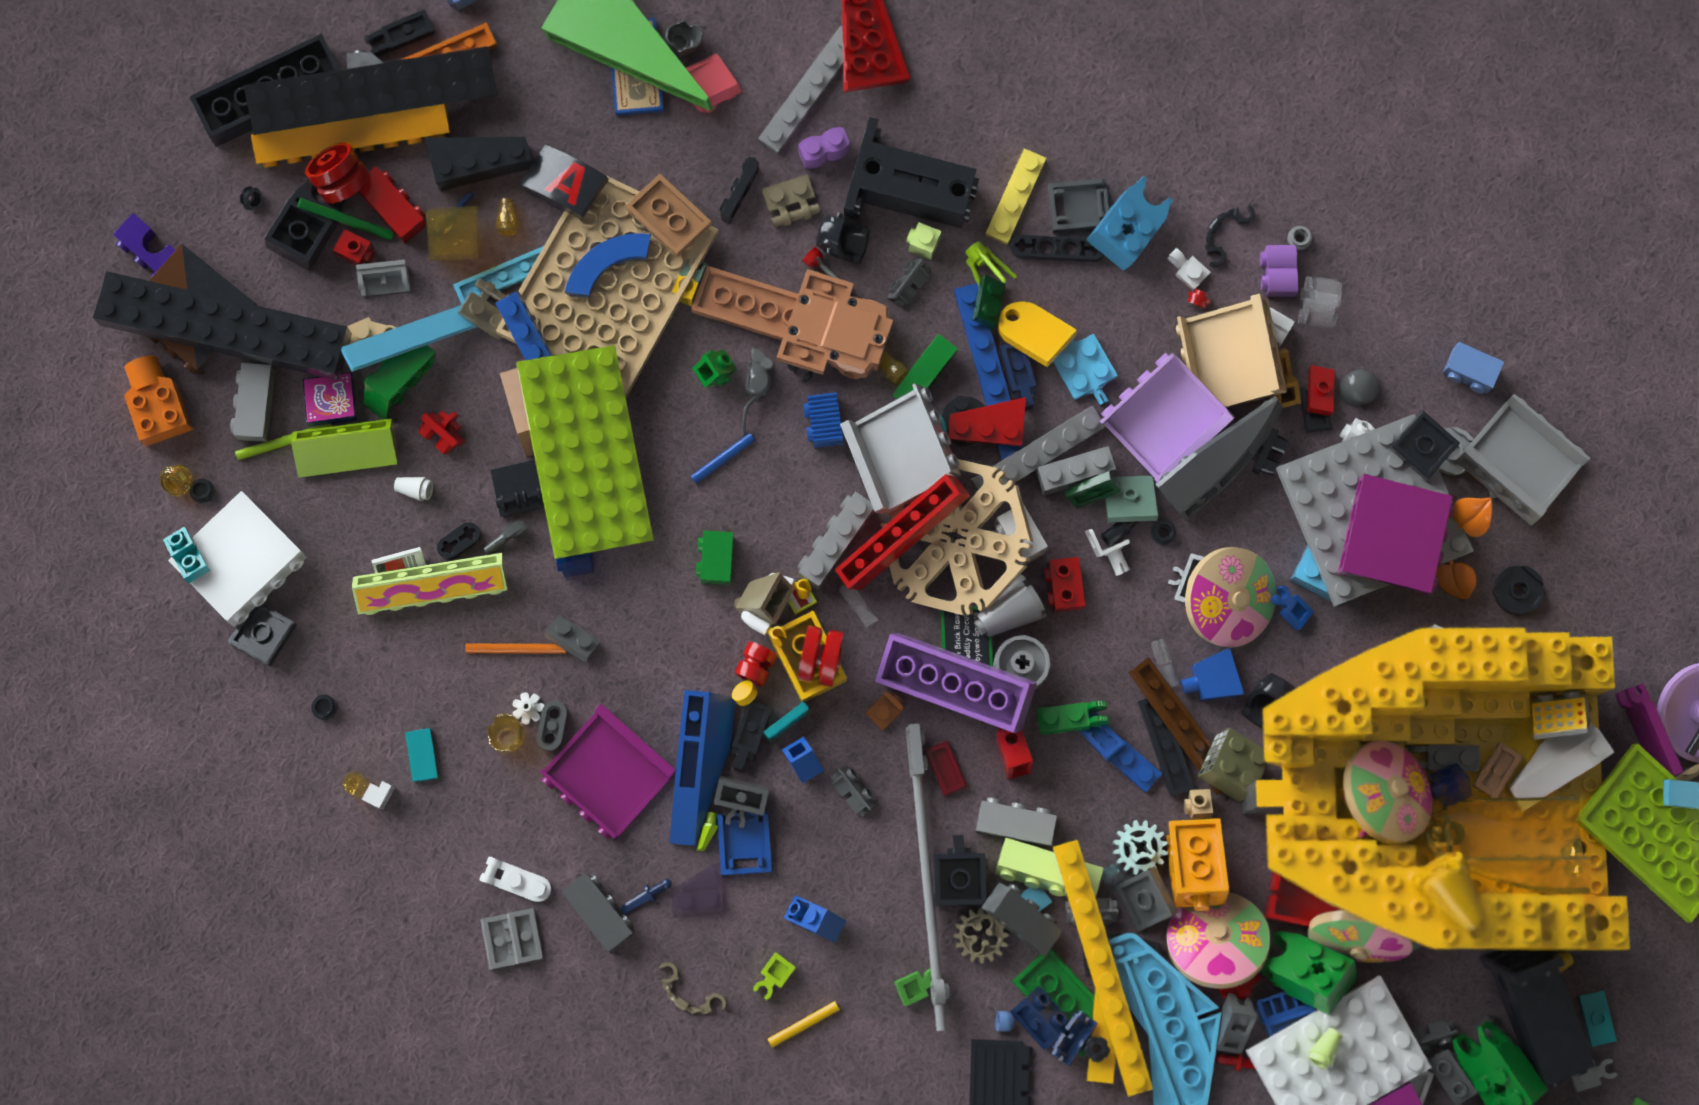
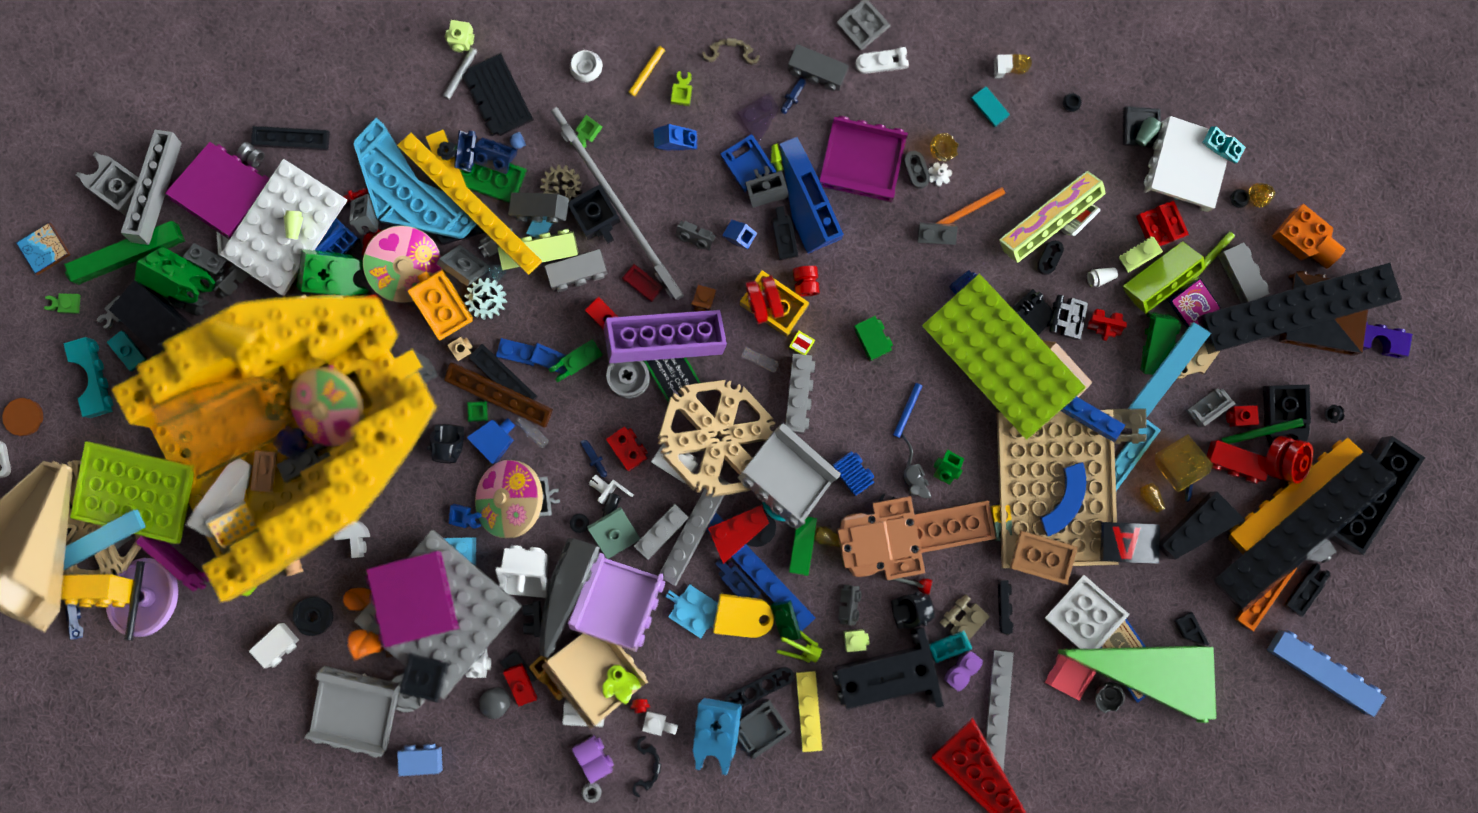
camera: 155 degrees right, 5 degrees up
(261, 620) = (1148, 130): none -> sand green cone
(308, 508) = (1163, 224): none -> red slope
(357, 485) = (1140, 254): none -> yellowish green brick
(476, 456) = (1073, 320): none -> plate
(512, 531) = (1017, 284): dark grey bar -> none
(551, 61) = (1191, 629): none -> black tile
(656, 133) = (1087, 615): none -> white plate
(744, 693) = (802, 257): yellow tile -> none
(765, 601) = (823, 324): dark tan torso -> none
(786, 721) = (764, 254): teal tile -> none
(824, 180) = (950, 646): none -> teal plate
(873, 1070) = (591, 66): none -> white hat
(902, 532) = (755, 418): red brick -> none
(1013, 609) = (653, 408): light grey cone -> none
(1092, 490) = (642, 523): dark green plate -> none
(1108, 594) = (594, 458): none -> dark blue piece
(1210, 327) = (622, 686): none -> lime plate
(1215, 721) = (477, 411): none -> green tile
(1233, 764) = (450, 384): olive brick -> none
(1253, 507) = (524, 572): none -> white piece
(1321, 301) = (551, 749): clear brick -> none
(1578, 579) = (274, 646): none -> white brick
(1650, 1039) = (95, 399): none -> teal arch

